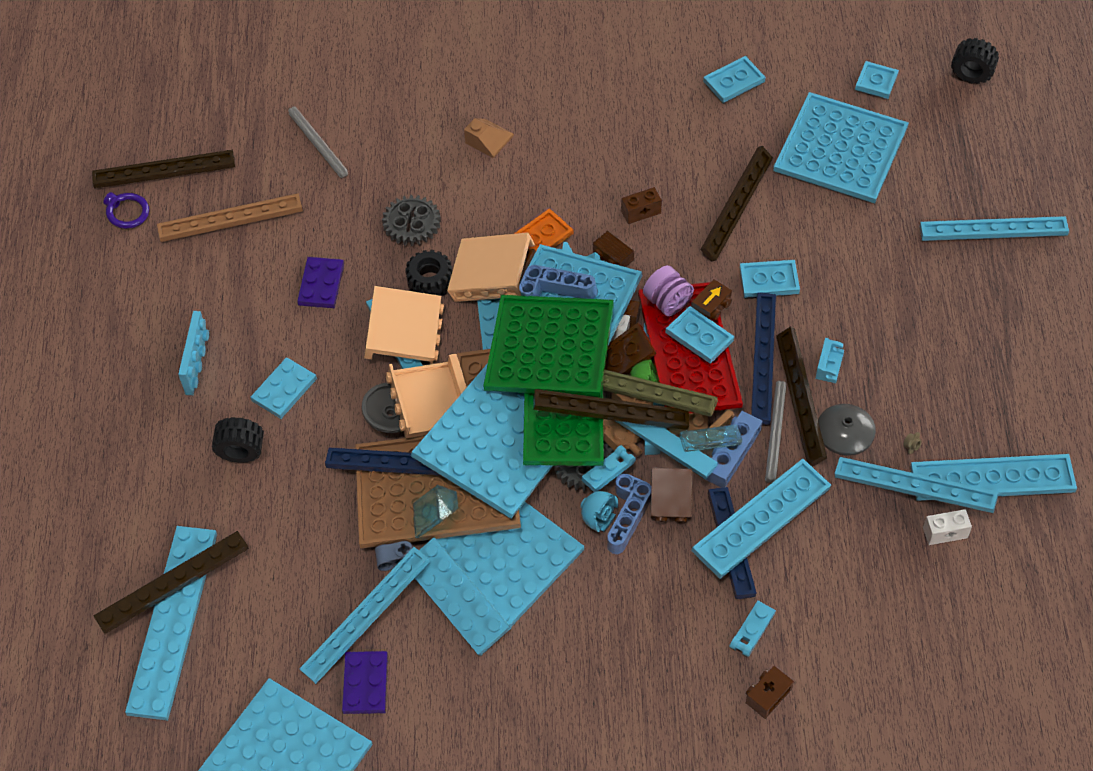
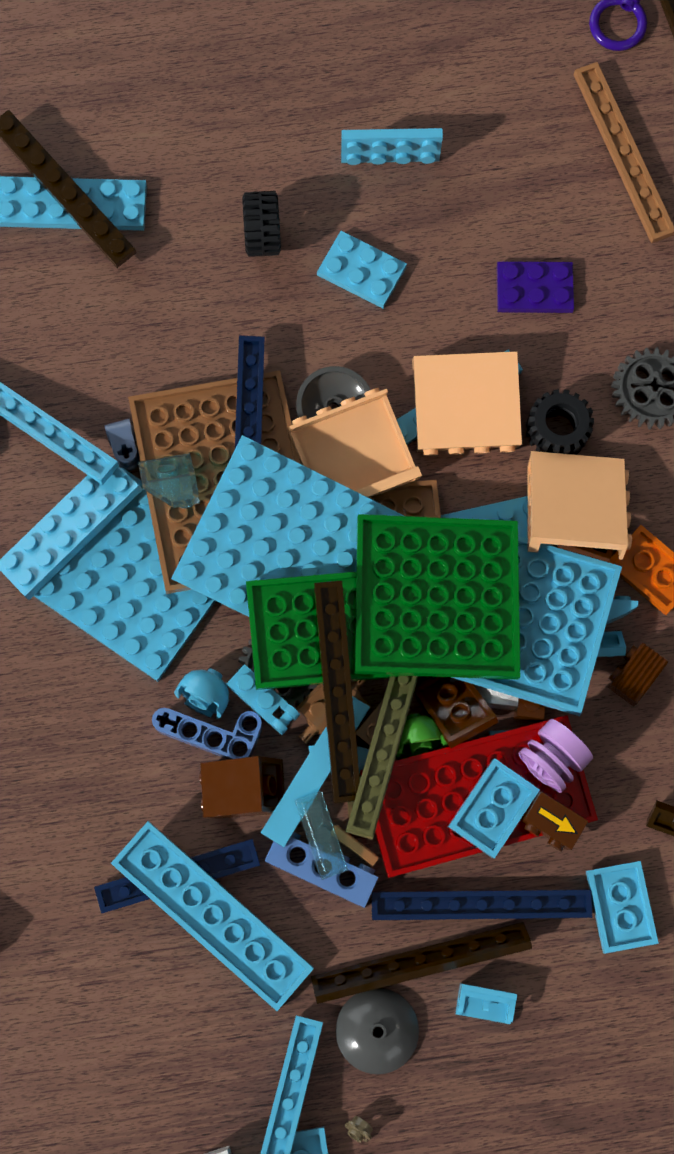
camera: 80 degrees right, 20 degrees up
(557, 281) = (545, 600): medium blue beam -> none
(753, 628) = (55, 912): medium azure plate -> none
(775, 433) = (361, 928): light grey axle -> none

